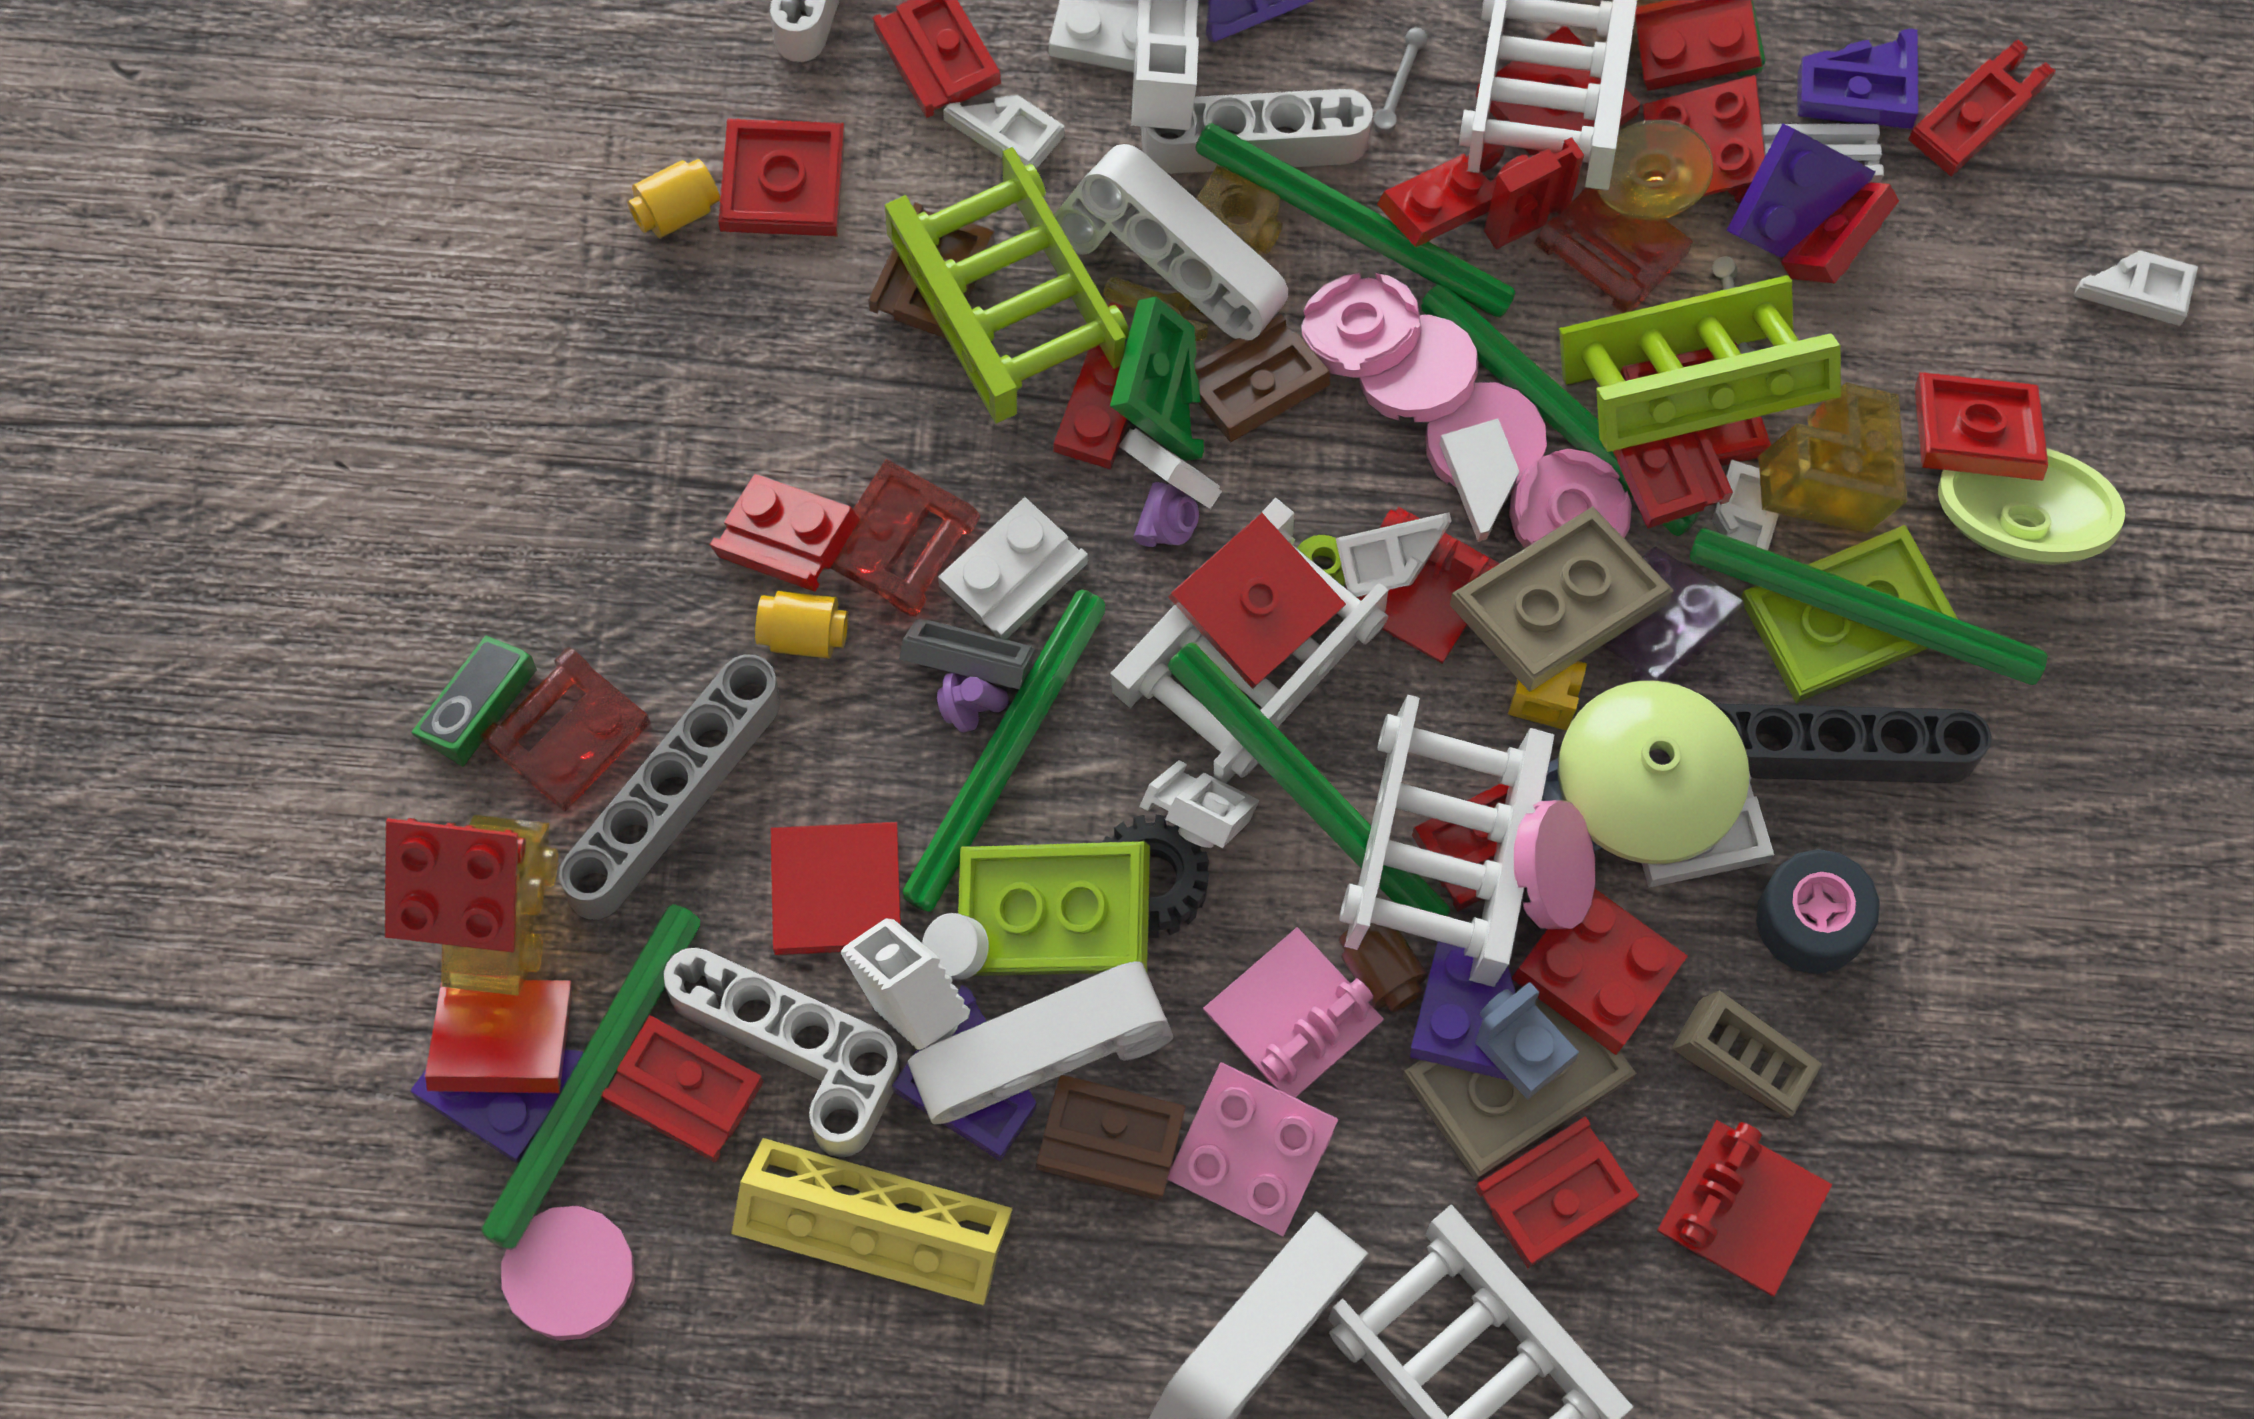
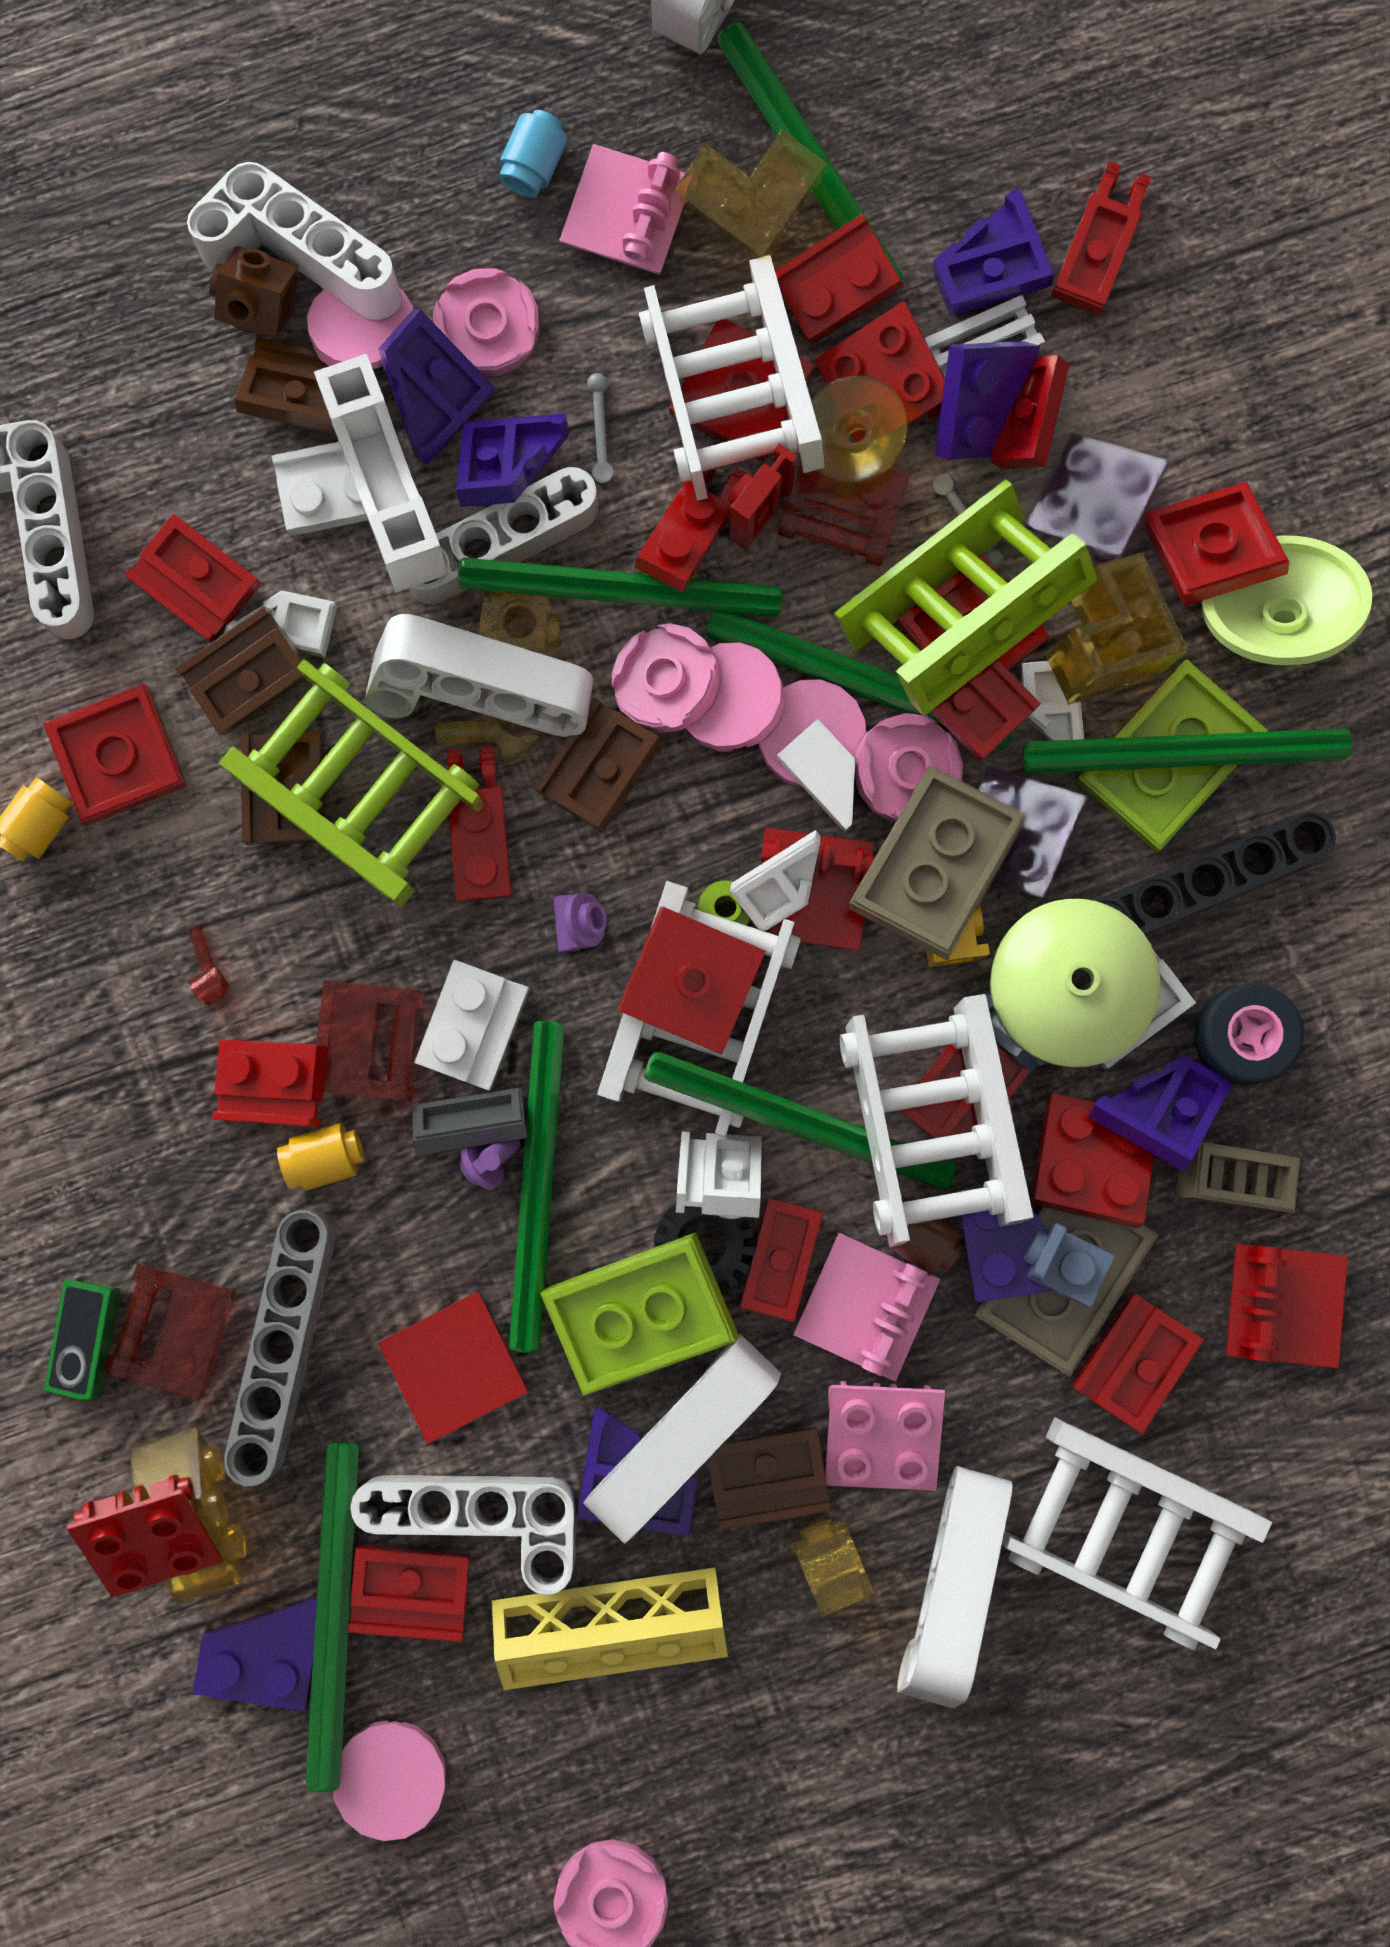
camera: 20 degrees left, 15 degrees up
(500, 1039) = (246, 1627): red tile -> none
(770, 419) = (210, 983): none -> clear red hand
(906, 984) = (550, 1439): white brick -> none
(945, 148) = (243, 671): none -> reddish brown plate
(958, 943) = (574, 1380): white tile -> none
(1138, 1255) = (832, 1566): none -> clear yellow brick
(1160, 378) = (520, 809): green wing -> none
(1171, 468) = (567, 883): white tile -> none
(1224, 925) = (781, 1260): none -> red plate
(1295, 60) = (505, 456): none -> dark purple wing
(1555, 864) = (1032, 1108): bright pink tile -> none
(1697, 944) = (1166, 1109): none -> dark purple wing
(1884, 333) = (1097, 495): none -> clear purple hinge
(2143, 286) = (1299, 347): white tile -> none

